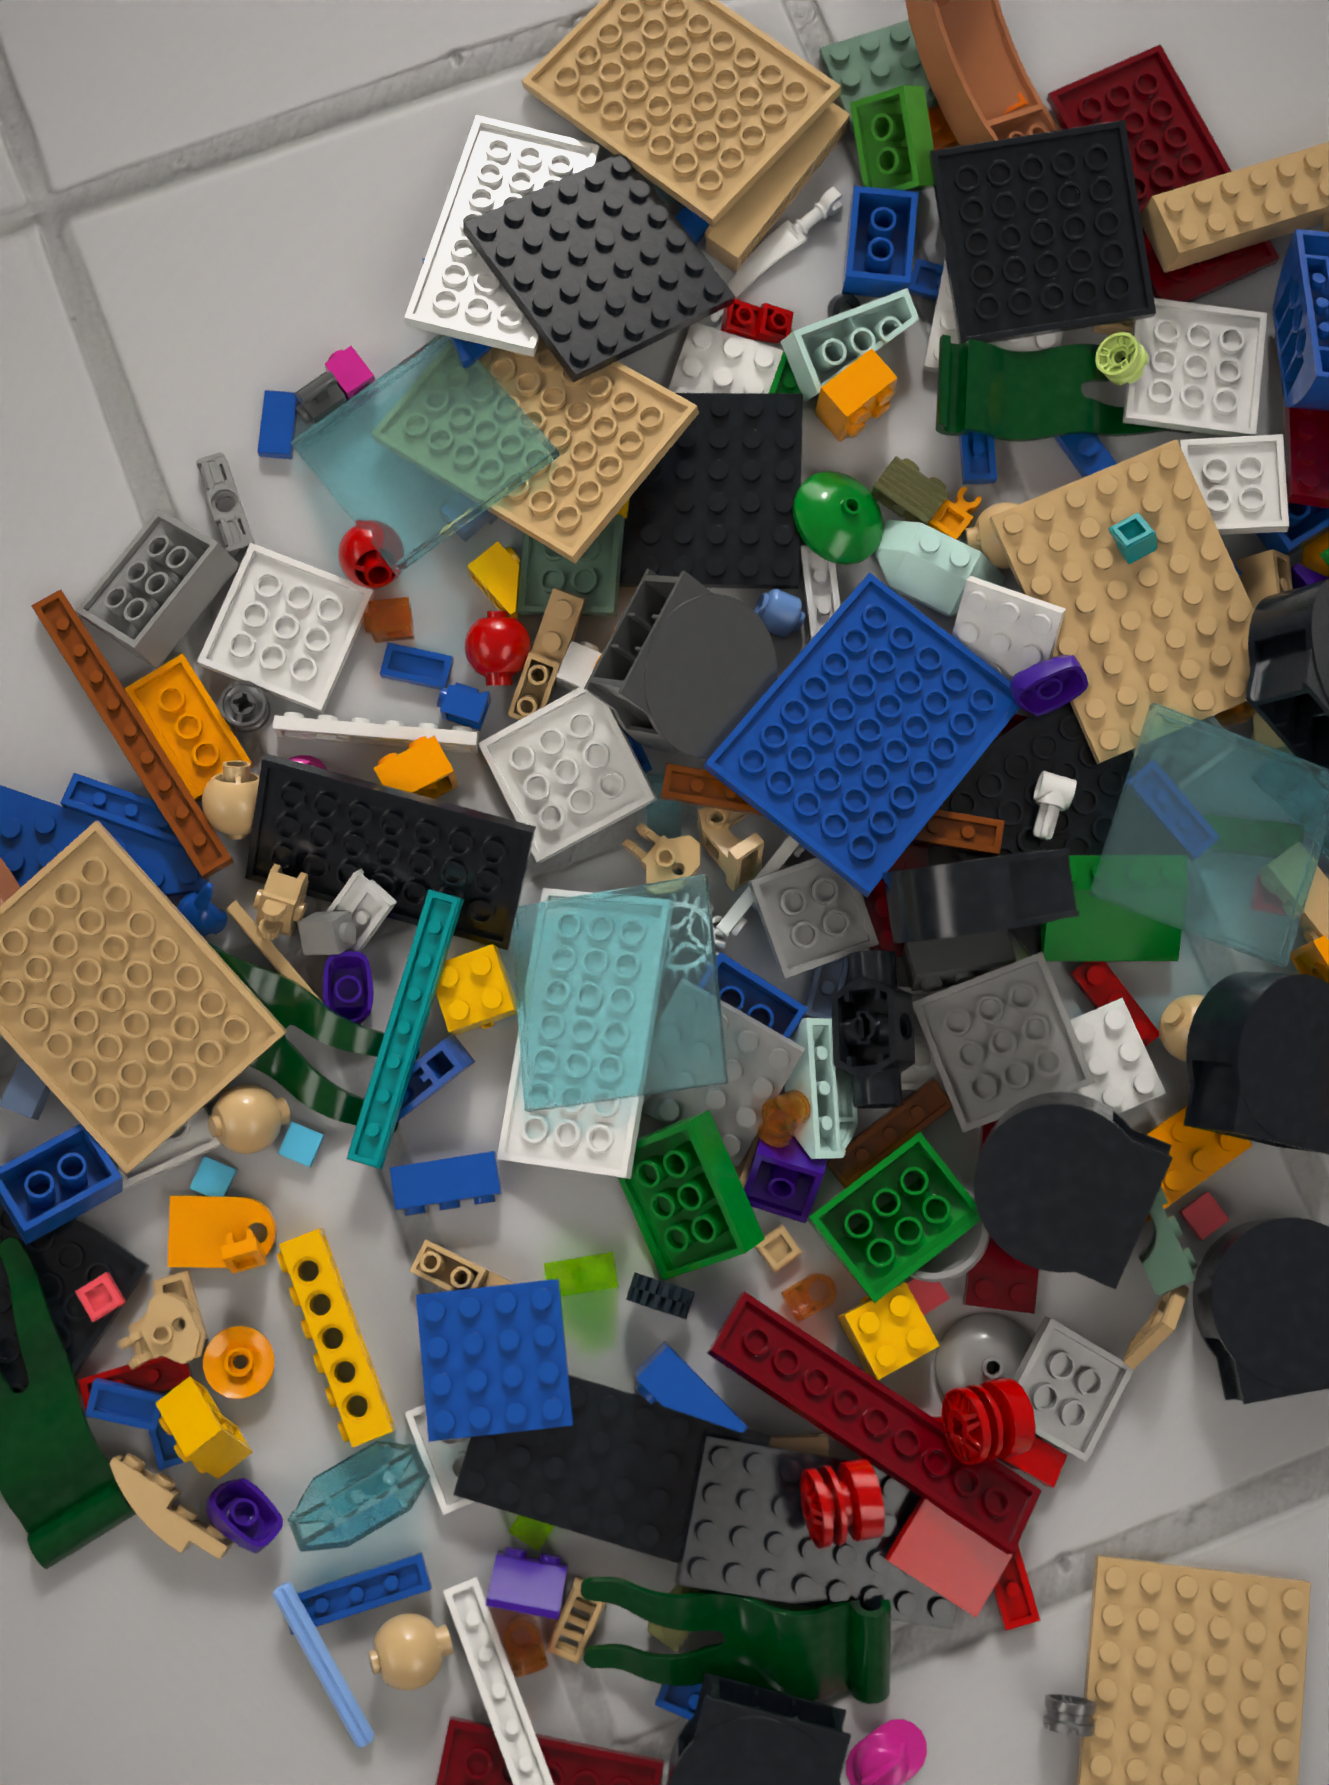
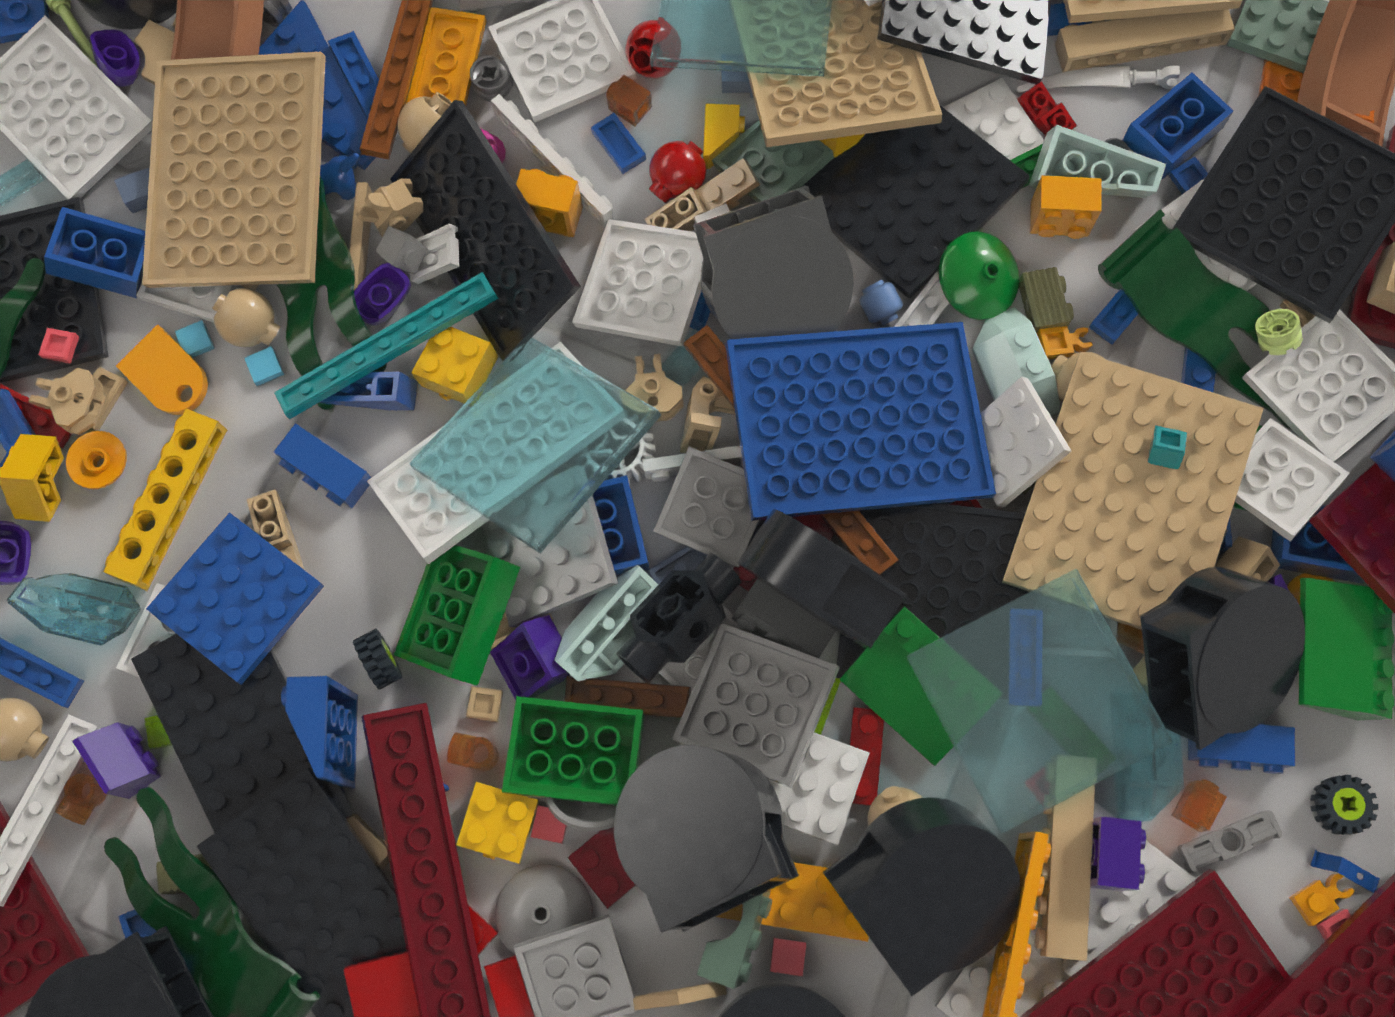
camera: 55 degrees right, 5 degrees down
(243, 1254) = (160, 395): light orange tile -> none
(464, 705) = (623, 189): blue window -> none
(565, 1649) = (103, 823): tan slope -> none
(583, 1273) = (348, 603): clear neon green slope -> none
(782, 1116) = (561, 615): clear orange piece -> none
(842, 1503) = (342, 894): red wheel -> none
(894, 139) = (1251, 60): bright green slope -> none
(988, 1421) = (496, 941): red wheel -> none
(1048, 684) = (1013, 493): dark purple piece -> none
(1053, 795) = (948, 573): white axle -> none

